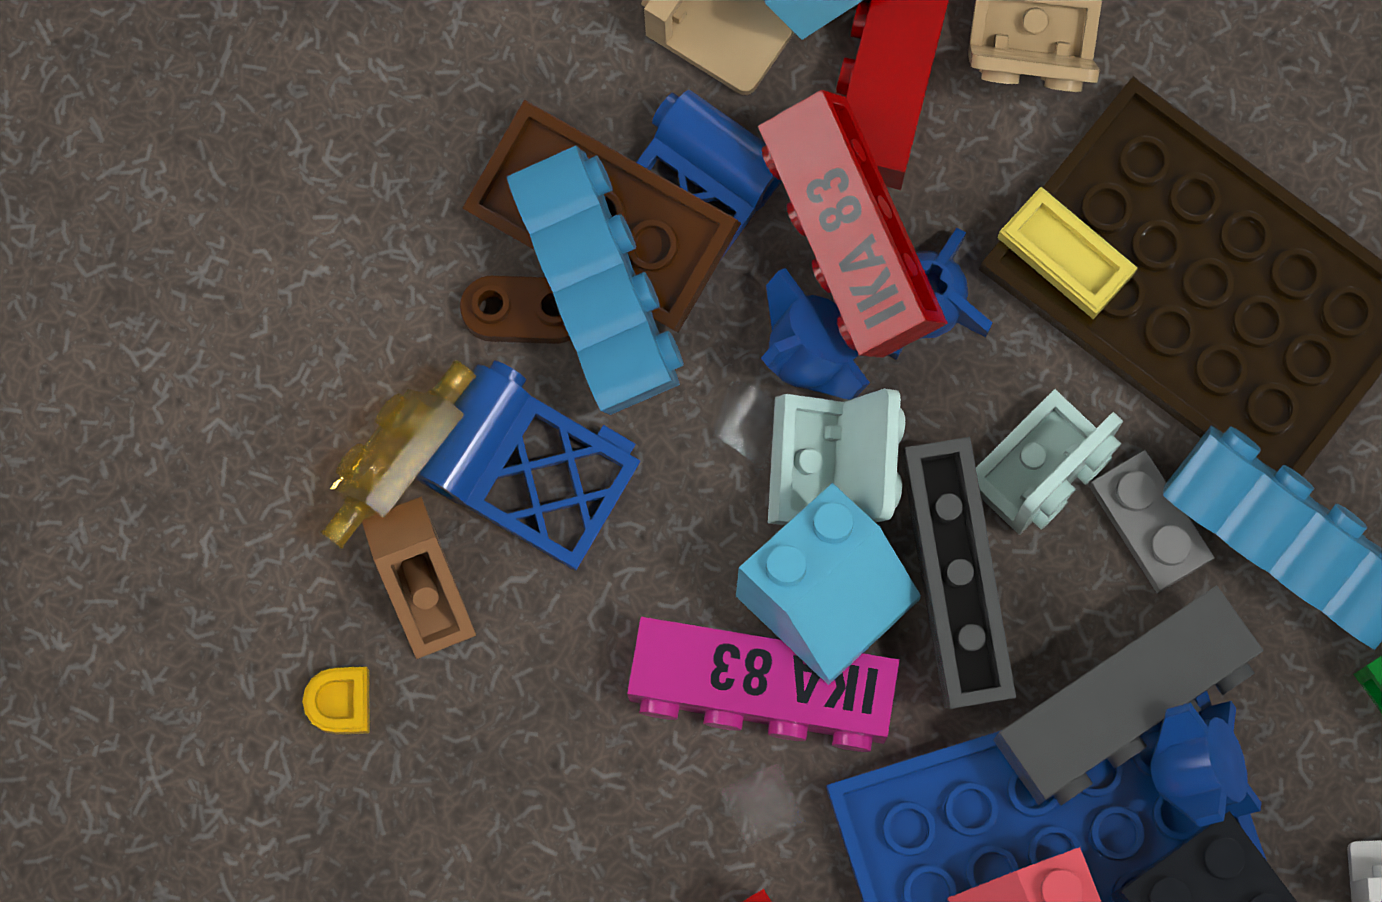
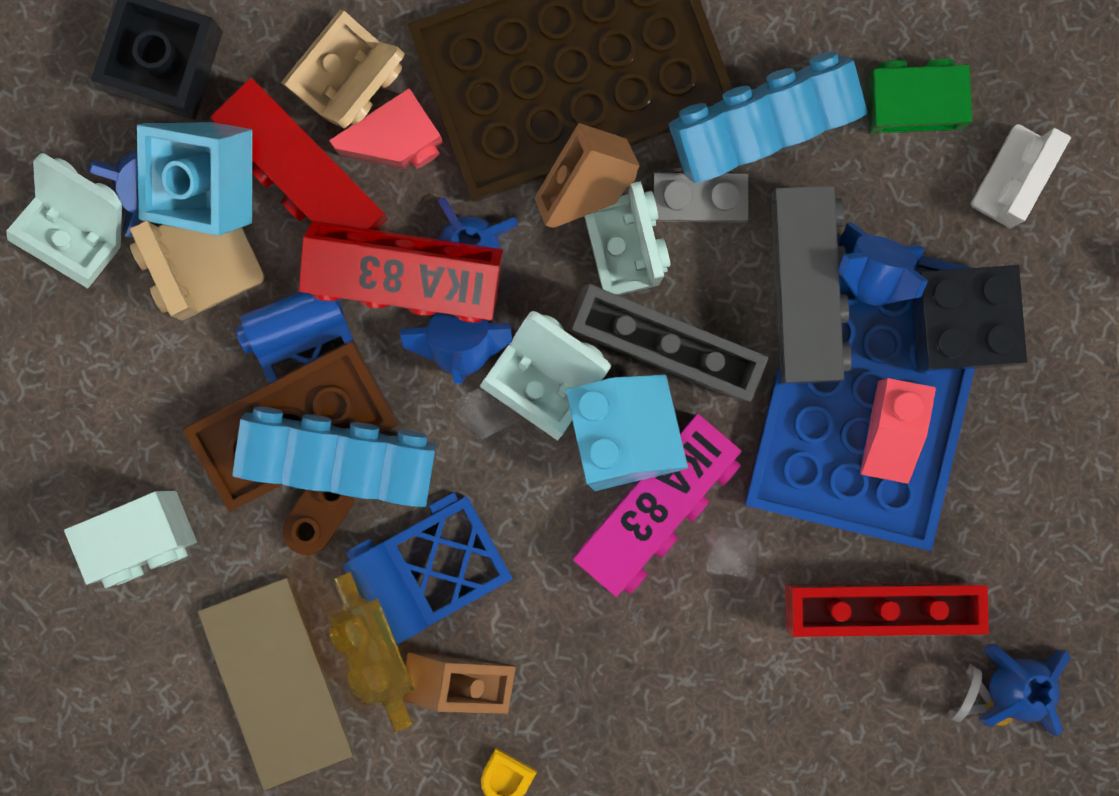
camera: 60 degrees left, 10 degrees up
(297, 376) = (276, 683): none -> dark tan tile
(370, 115) = (130, 536): none -> light aqua brick
(997, 133) = (392, 135): none -> coral slope
(1067, 252) = (500, 141): light yellow tile -> none
(1092, 370) = (586, 176): none -> medium nougat slope

